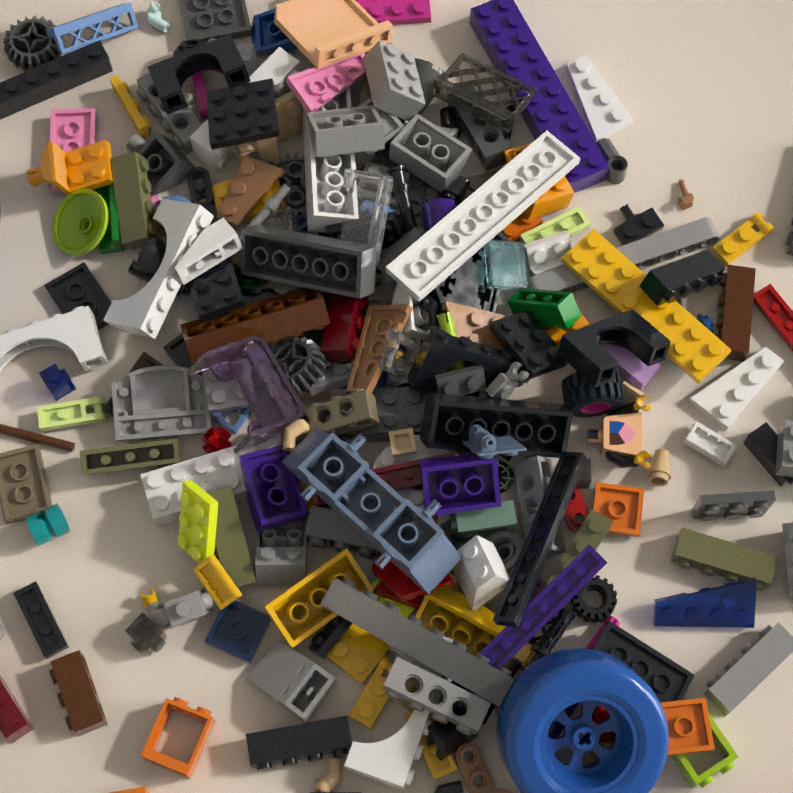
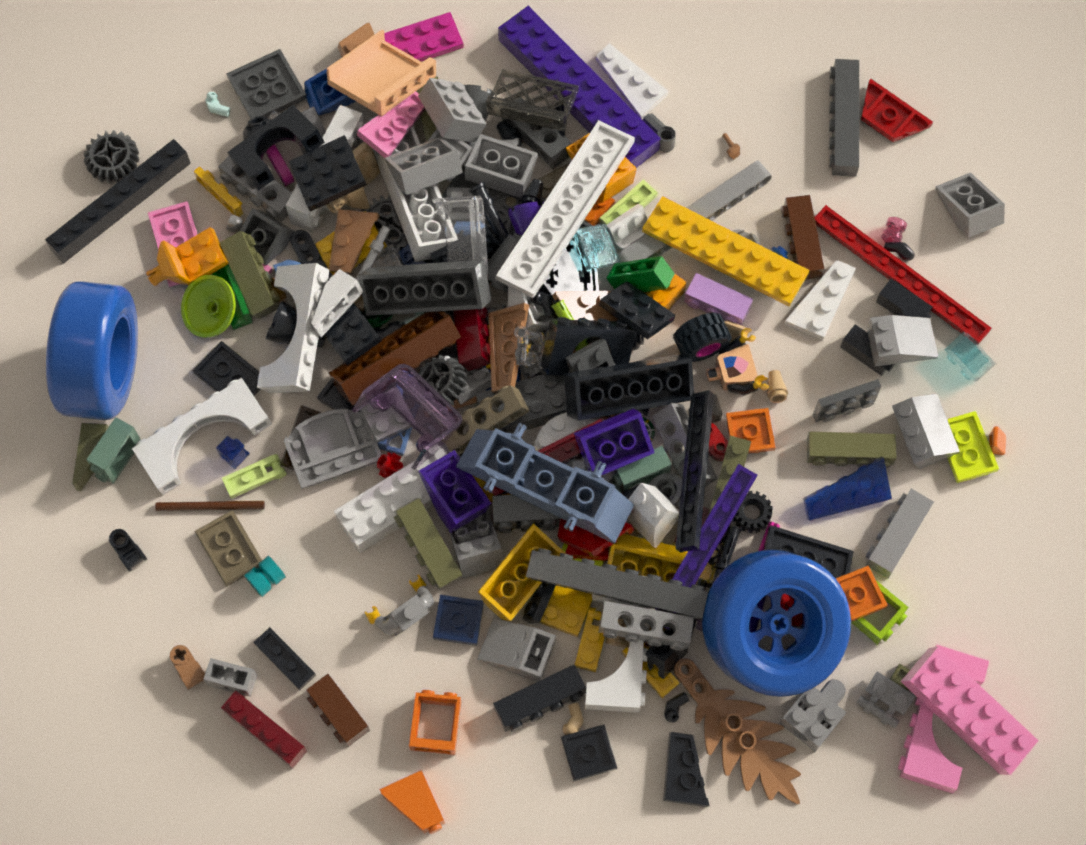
camera: 15 degrees left, 0 degrees up
(87, 21) = (157, 123): medium blue fence -> none
(130, 456) = (319, 498): olive brick -> none
(146, 635) = (380, 646): clear smoke brick -> none
(197, 522) = (398, 538): neon yellow plate -> none
(217, 582) = (430, 583): yellow plate -> none
(292, 431) = (457, 438): tan arm -> none
(402, 442) = (554, 422): tan plate -> none
(487, 445) = (629, 403): sand blue hinge -> none
(505, 383) = (627, 349): light grey plate -> none
(628, 329) = (715, 276): black arch -> none
(637, 225) = (698, 183): black plate -> none
(682, 277) = (751, 219): black brick -> none
(710, 444) = (812, 355): white plate -> none
(742, 239) = (791, 172): yellow plate -> none

